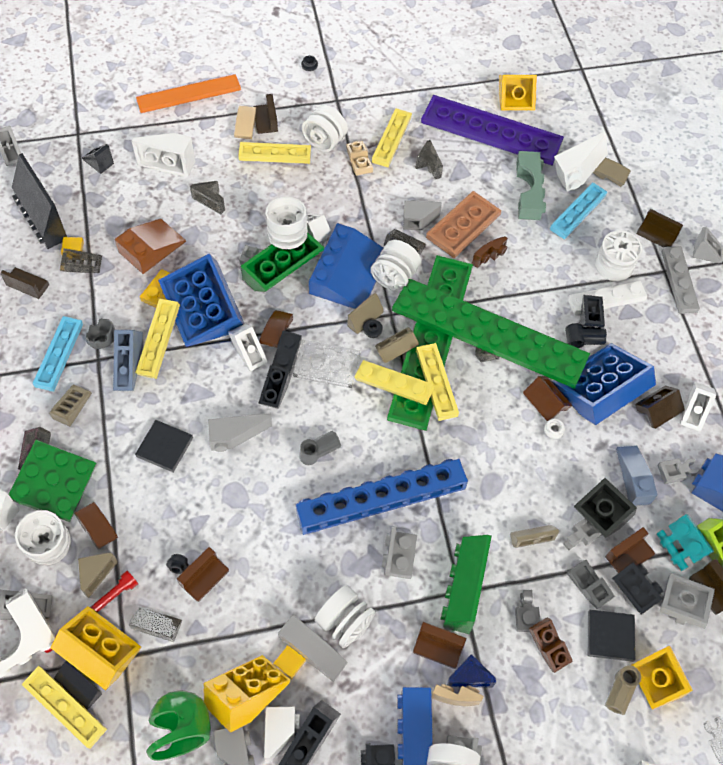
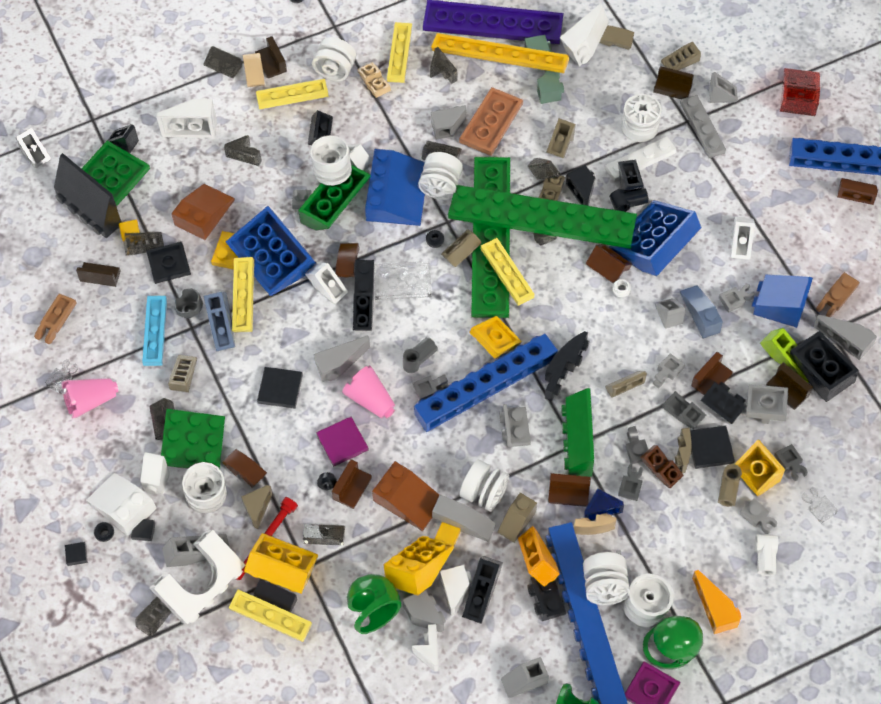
camera: 10 degrees left, 0 degrees up
(76, 187) = (116, 170): none -> green plate
(98, 287) = (168, 262): none -> black tile
(188, 93) = (186, 53): orange tile -> none
(209, 522) = (342, 441): none -> magenta tile
(219, 108) = (223, 62): none -> clear smoke slope
(254, 477) = (370, 393): none -> bright pink cone
(257, 604) = (406, 496): none -> dark orange slope
(294, 187) = (320, 126): none -> black slope
(318, 485) = (427, 387): none -> flat silver plate
(369, 309) = (427, 222): dark tan slope -> none
(372, 663) = (517, 517): none -> dark tan slope
(381, 721) = (537, 557): none -> light orange slope
(394, 382) = (469, 281): light yellow plate -> none
(405, 449) = (495, 337): none -> yellow hinge
(472, 494) = (565, 360): none -> black slope
(490, 250) = (523, 141): reddish brown slope -> none
(493, 160) = (501, 53): none -> yellow plate
(503, 283) = (543, 168): none -> clear smoke slope
(508, 304) = (552, 188): none -> dark tan slope
(510, 658) = (631, 485): none -> dark grey plate
(530, 257) = (561, 138): none -> dark tan slope
(539, 308) = (581, 184): none -> black slope
(578, 211) = (594, 83): medium azure plate -> none
(578, 638) = (684, 450): none -> dark tan slope
(600, 467) = (670, 312): none -> light grey slope
(606, 508) = (682, 343): pearl dark grey slope -> none
(646, 732) = (757, 514): none -> light grey plate
(661, 405) = (710, 245): dark brown panel -> none
(684, 202) = (689, 50): none -> dark tan slope
(689, 537) = (759, 351): teal plate -> none
(700, 675) = (790, 459): none -> dark grey plate

